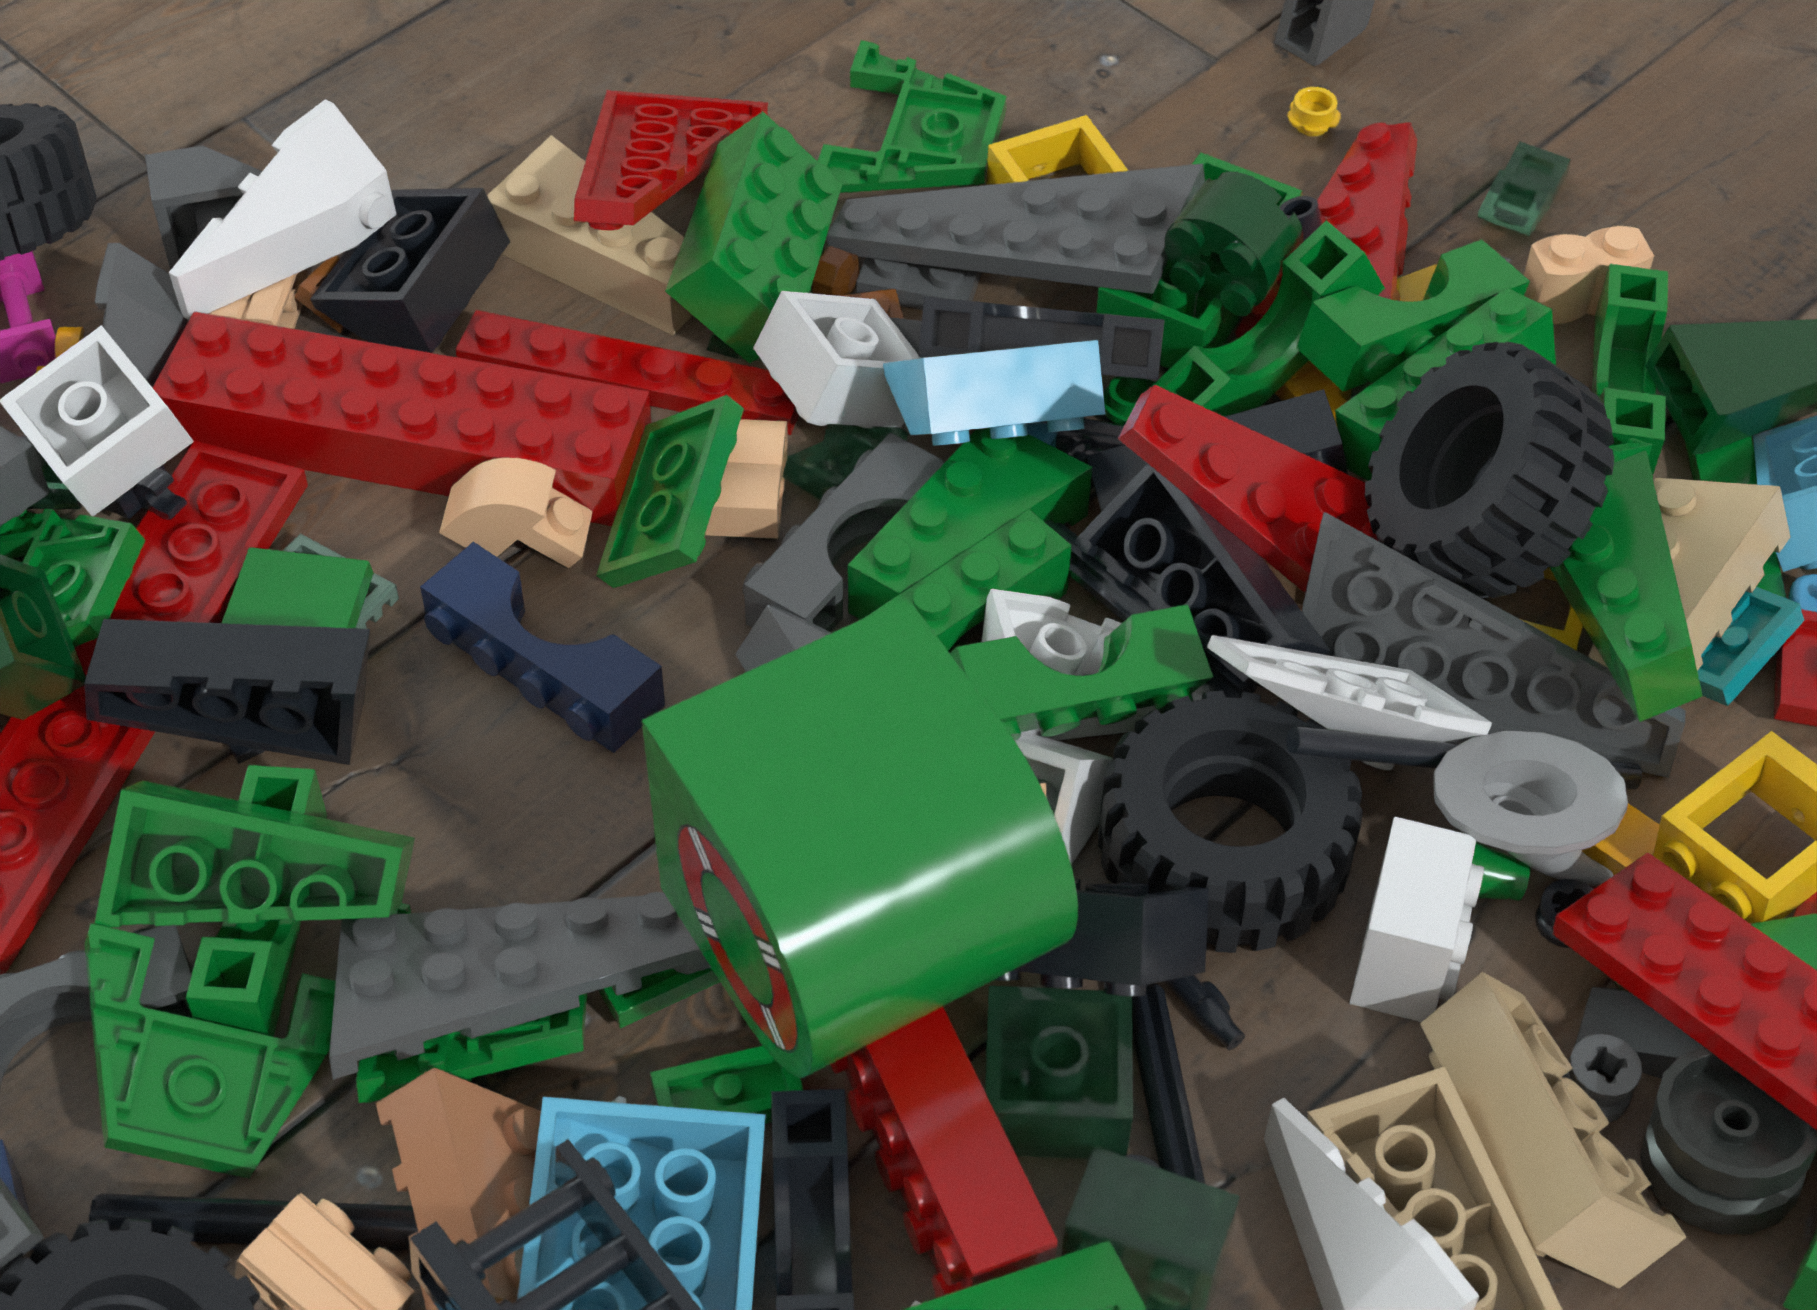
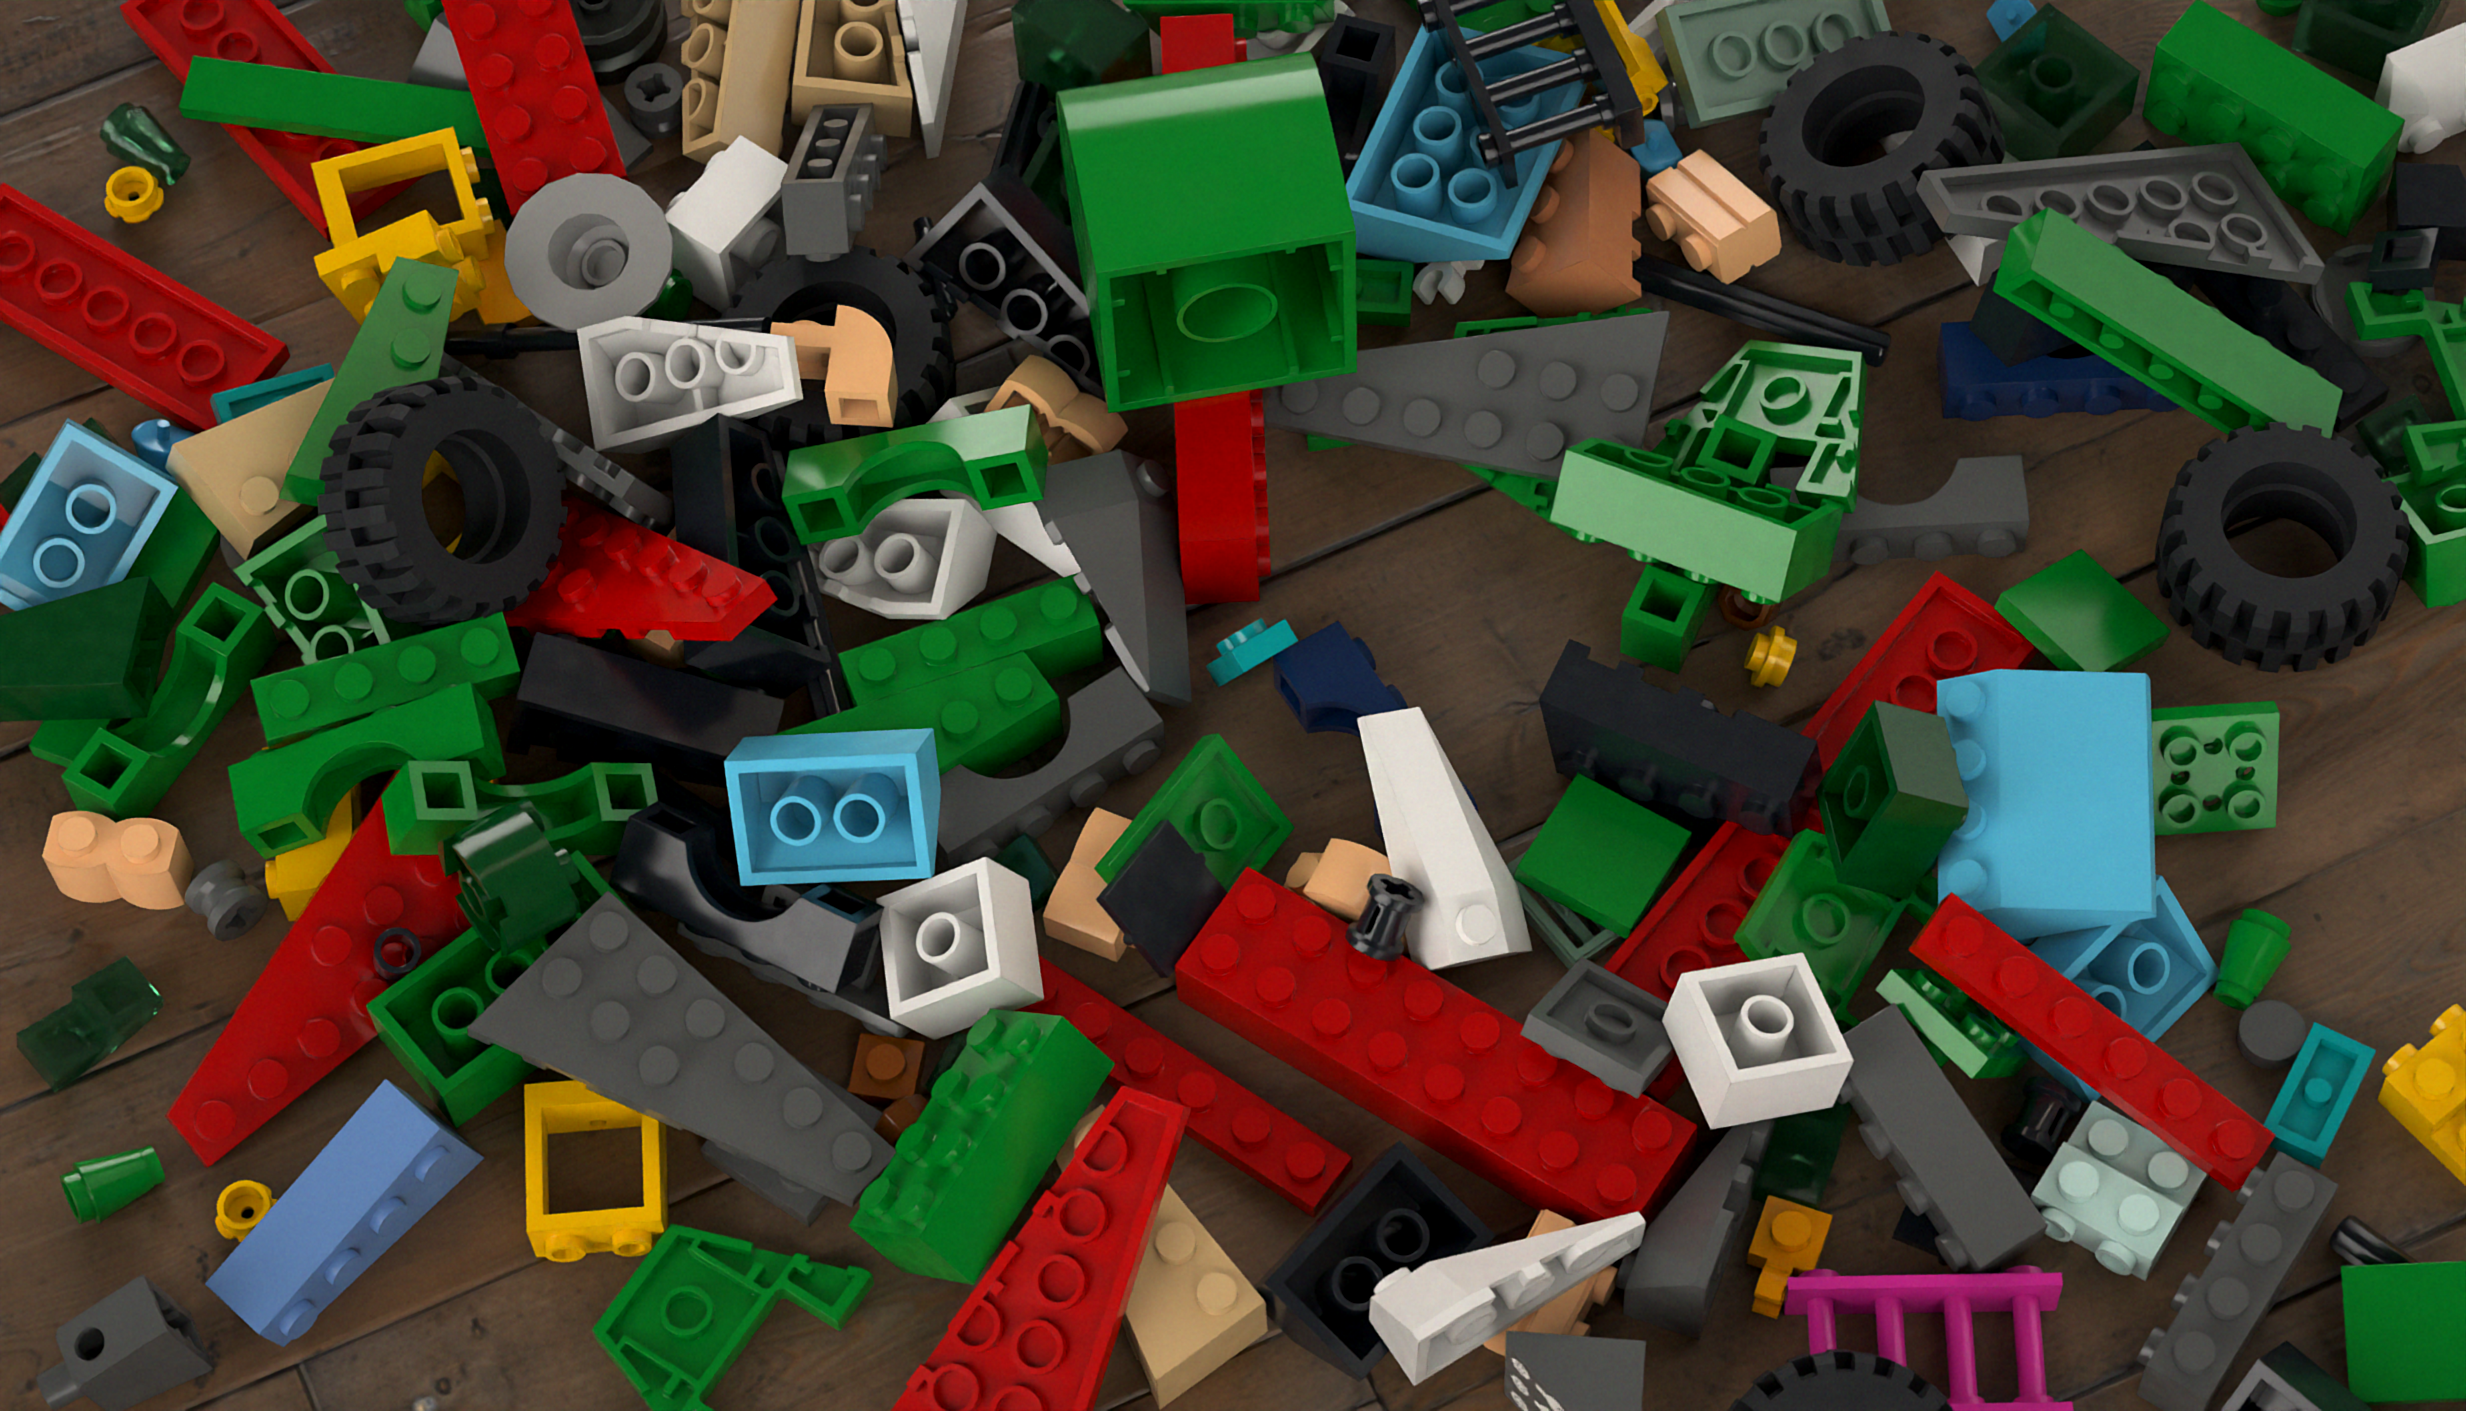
camera: 155 degrees left, 10 degrees up
(244, 433) = (1603, 1027): none -> dark grey plate
(425, 521) = (1440, 848): none -> white wedge
(451, 448) = (1384, 917): none -> black bush
(675, 422) = (1162, 897): none -> black piece
(678, 650) = (1249, 648): none -> teal plate
(1189, 739) = (853, 360): none -> light nougat brick
(1236, 95) = (343, 1213): none -> medium blue wedge
(1331, 951) = (832, 180): none -> dark grey brick
(1429, 95) = (110, 1182): none -> green cone
(1697, 744) = (361, 266): none -> yellow plate

